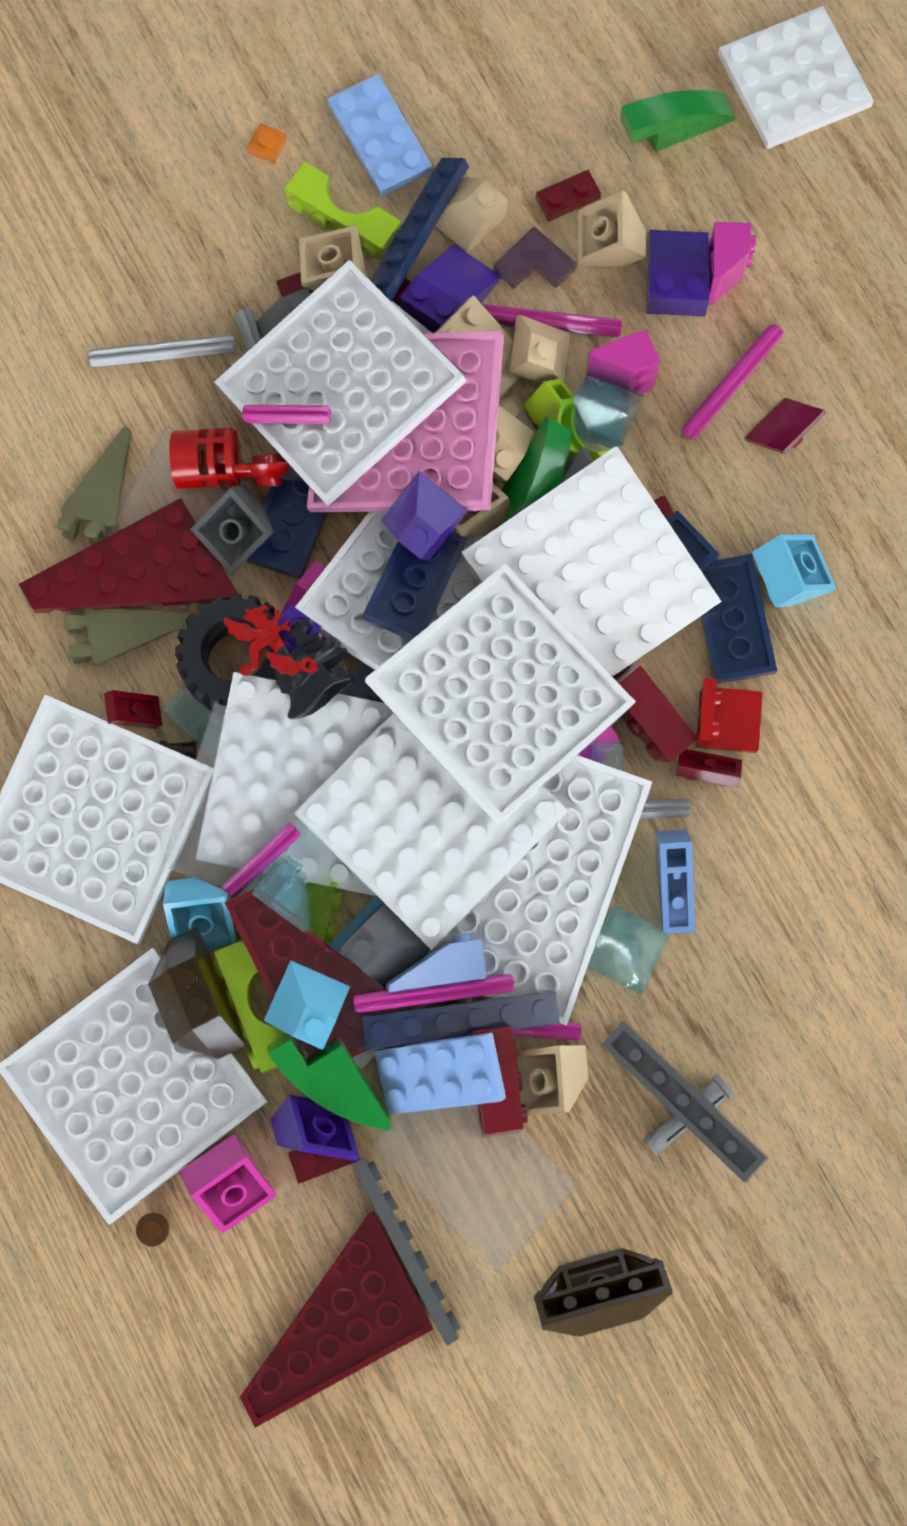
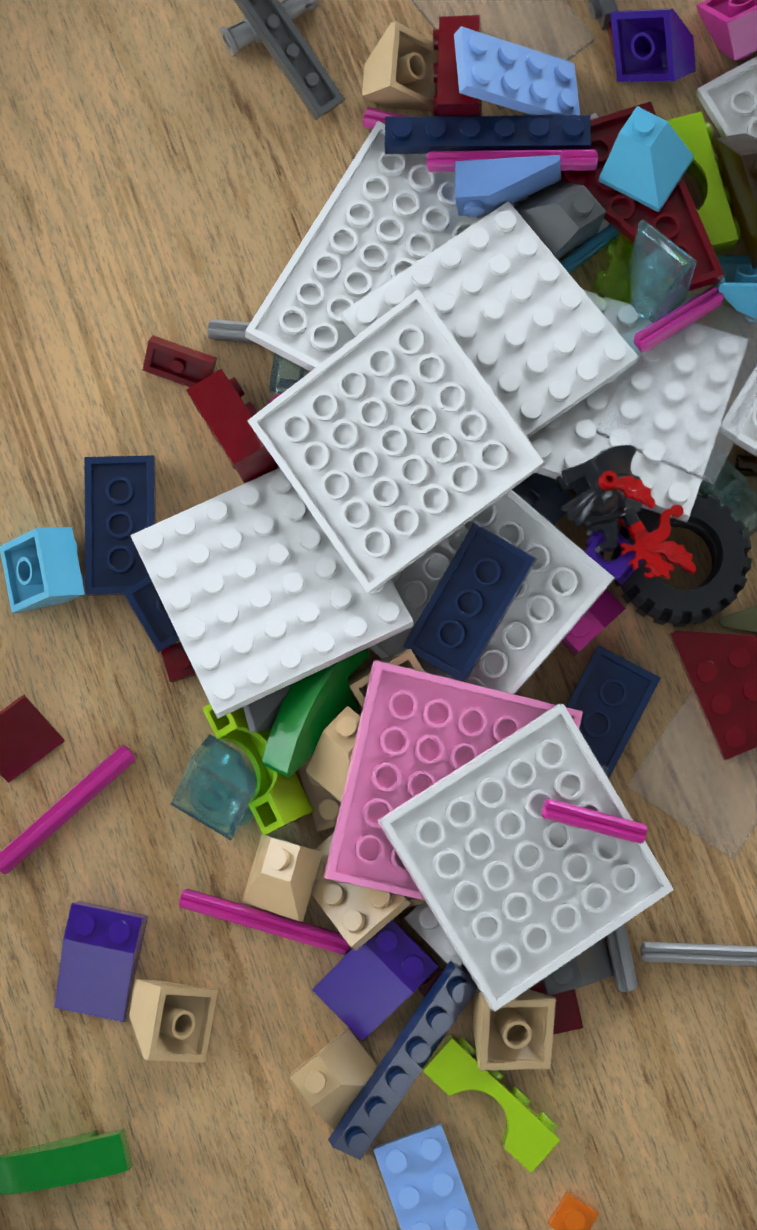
camera: 170 degrees left, 5 degrees up
(214, 460) = (680, 790): red cylinder -> none
(234, 528) = (666, 709): dark grey slope -> none
(331, 1081) = (623, 82): green slope -> none
(423, 516) = (453, 660): dark purple slope -> none
(533, 253) = (268, 1013): clear purple plate -> none
(568, 195) = (213, 1084): dark red plate -> none
(626, 362) = (181, 837): dark pink slope -> none
(627, 949) = (298, 190): clear light blue slope -> none
(675, 880) = (237, 253): medium blue slope -> none
(728, 718) = (148, 415): red bracket -> none
(729, 254) = (36, 959): dark pink slope -> none

